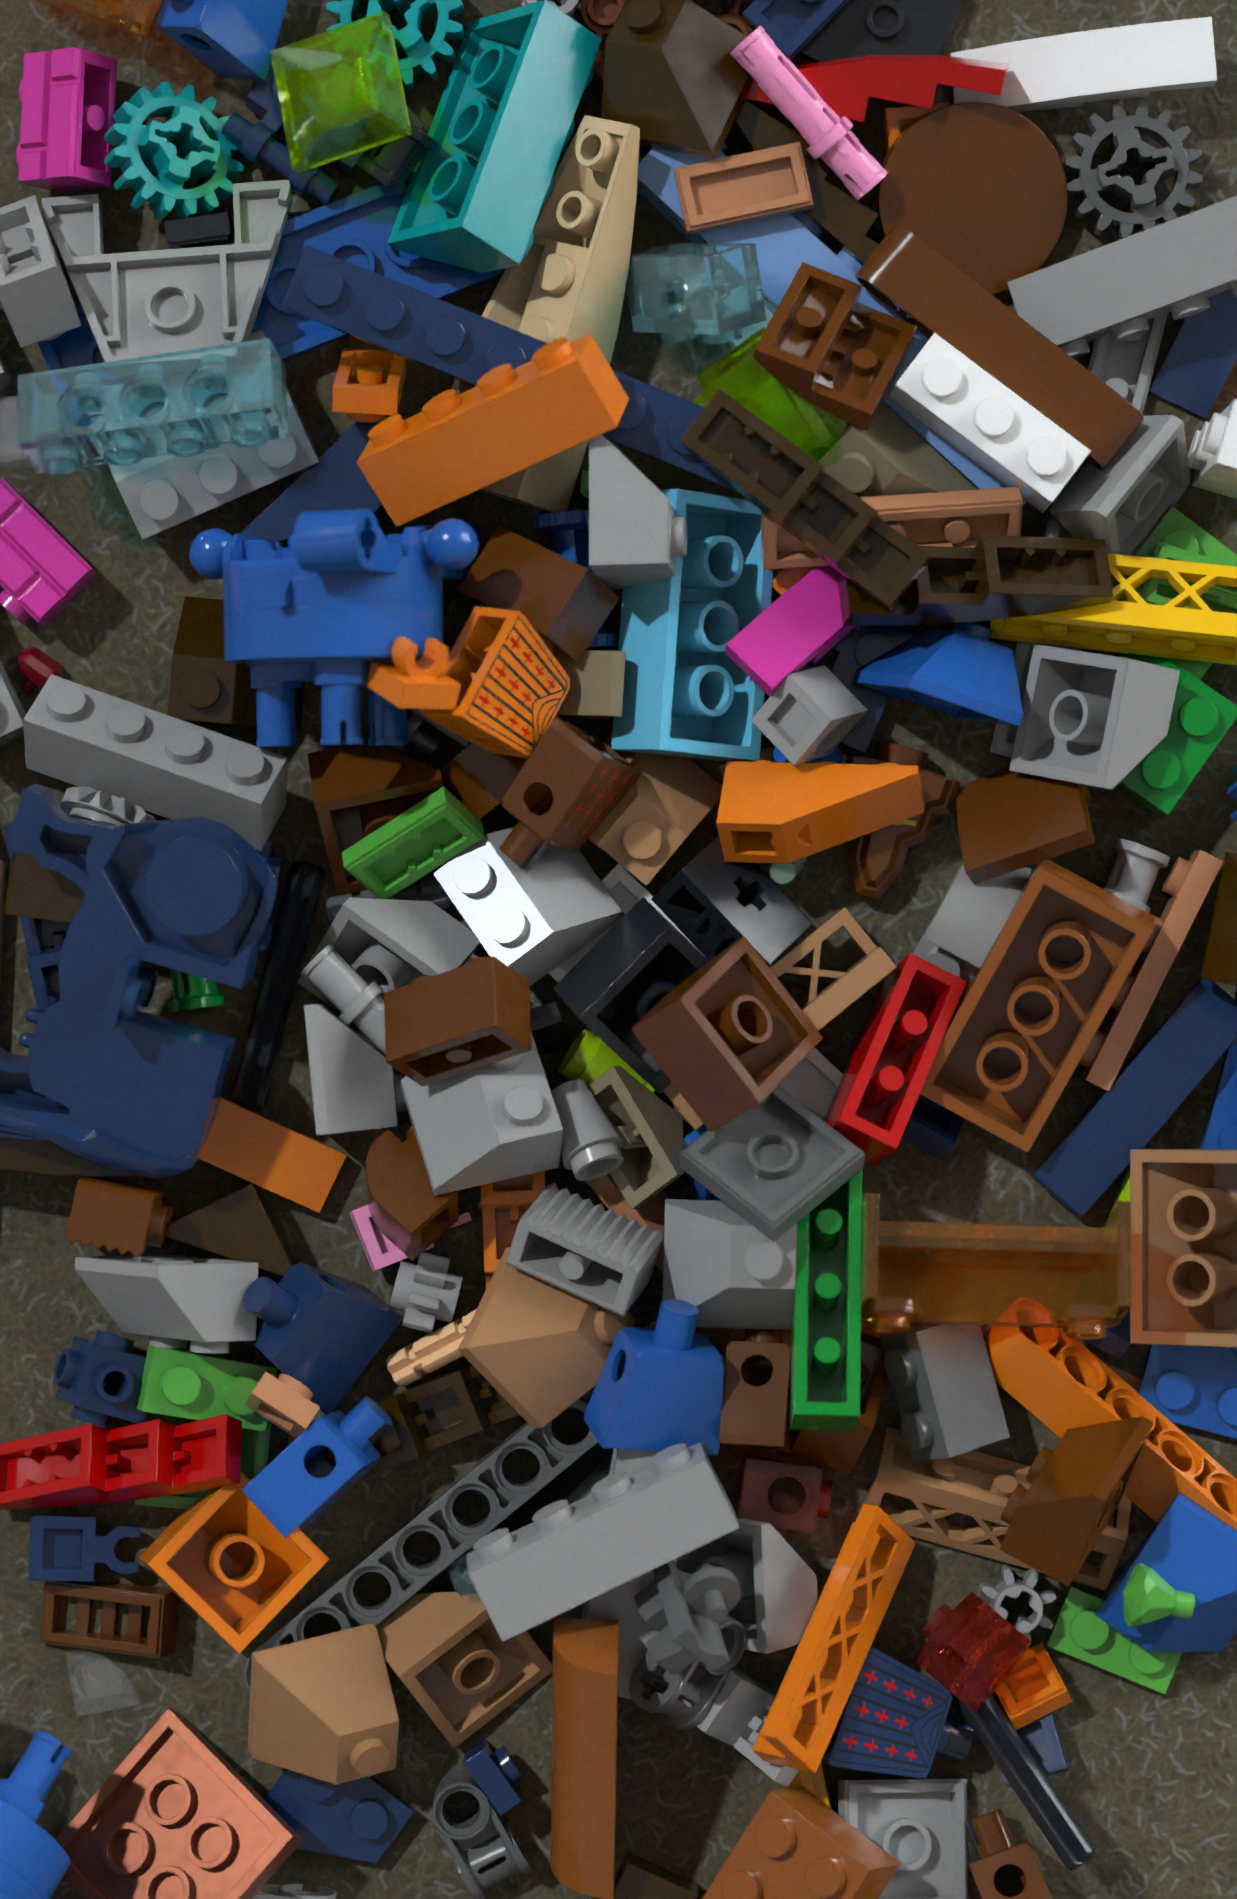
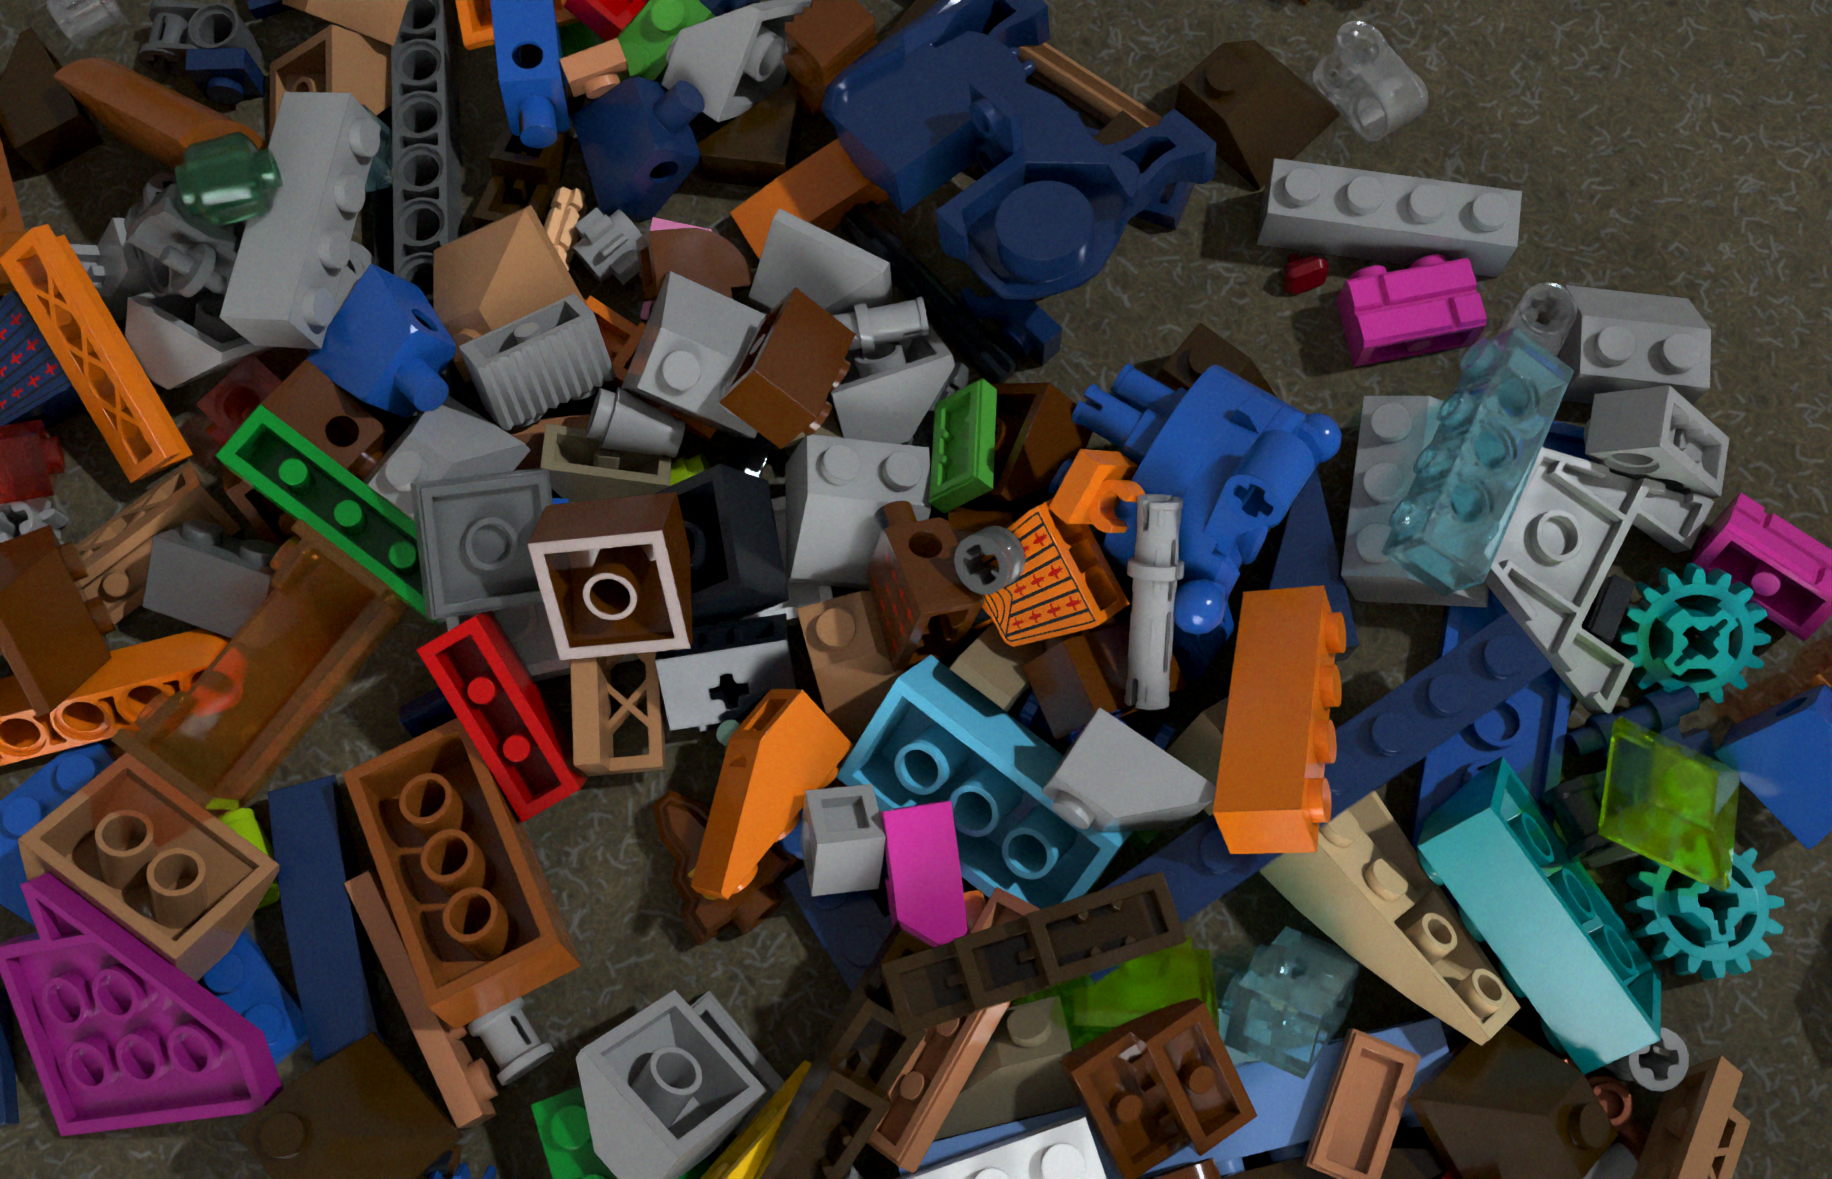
camera: 130 degrees right, 15 degrees down
(97, 805) = (1148, 240): light grey gear -> none
(154, 759) = (1168, 295): light grey brick -> none
(368, 384) = (1381, 653): orange plate -> none
(455, 590) = (1154, 587): none -> light grey pin
(536, 733) = (988, 578): none -> dark grey bush
(620, 1603) = (228, 179): none -> clear green head
(950, 673) = (790, 994): blue slope -> none
(970, 922) = (579, 872): light grey brick -> none
(1019, 821) = (620, 961): reddish brown slope -> none

